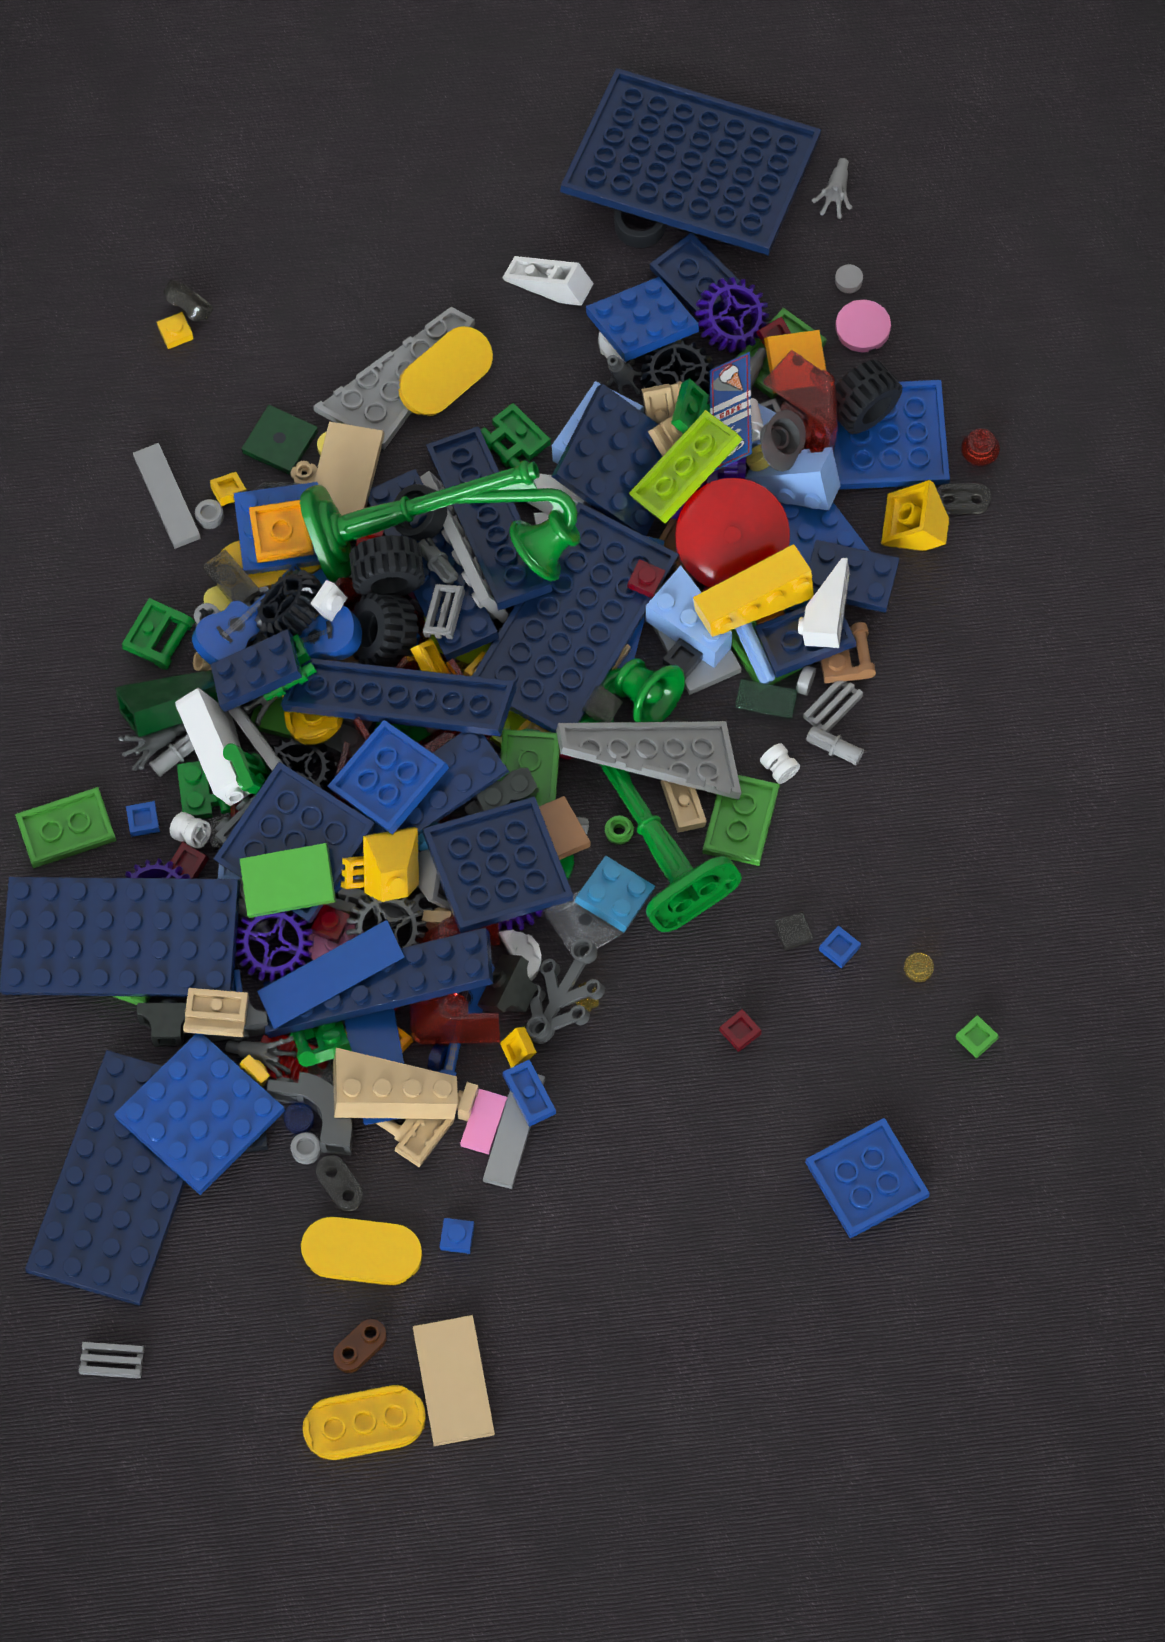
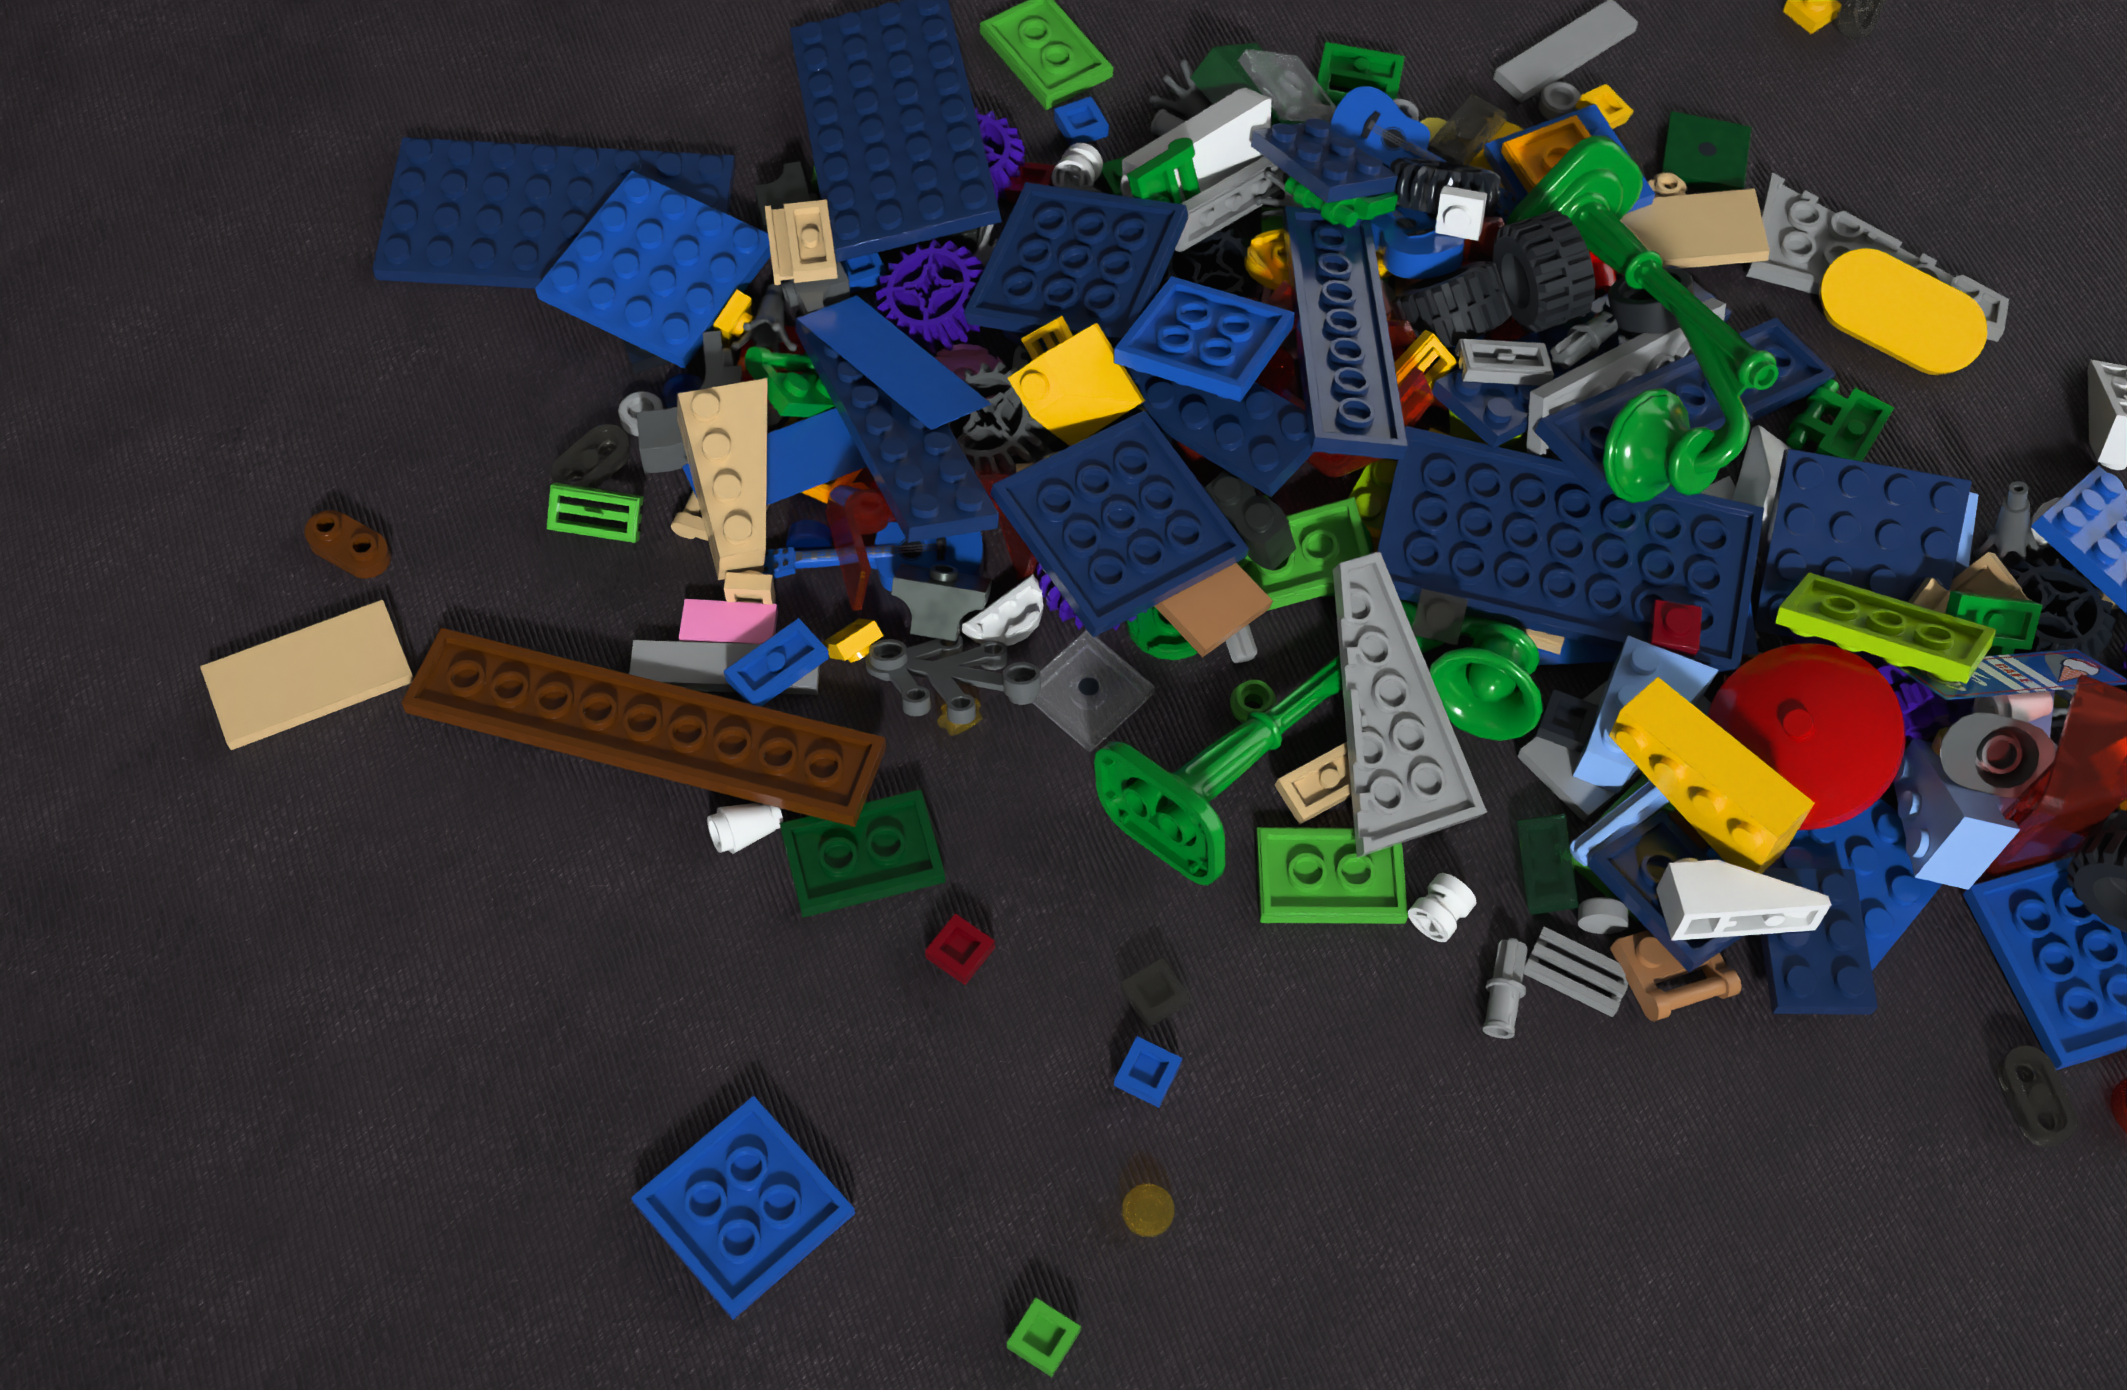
camera: 70 degrees right, 5 degrees down
(111, 1348) = (286, 235): light grey tile -> none
(165, 677) = (1289, 84): none -> clear tile
(287, 880) = (1013, 266): bright green tile -> none
(330, 923) = (985, 351): dark red plate -> none
(361, 1250) = (494, 514): yellow tile -> none
(364, 1422) = (229, 575): yellow tile -> none
(377, 1184) = (633, 517): none -> bright green tile
(422, 1139) = (678, 549): tan plate -> none
(457, 1235) = (540, 628): blue plate -> none
(549, 1180) = (646, 726): none -> reddish brown plate
(614, 894) = (1142, 711): dark azure plate -> none
(629, 1136) = (742, 825): none -> white cone
(664, 1072) = (878, 858): none -> dark green plate
(915, 518) = (1964, 1026): yellow slope -> none

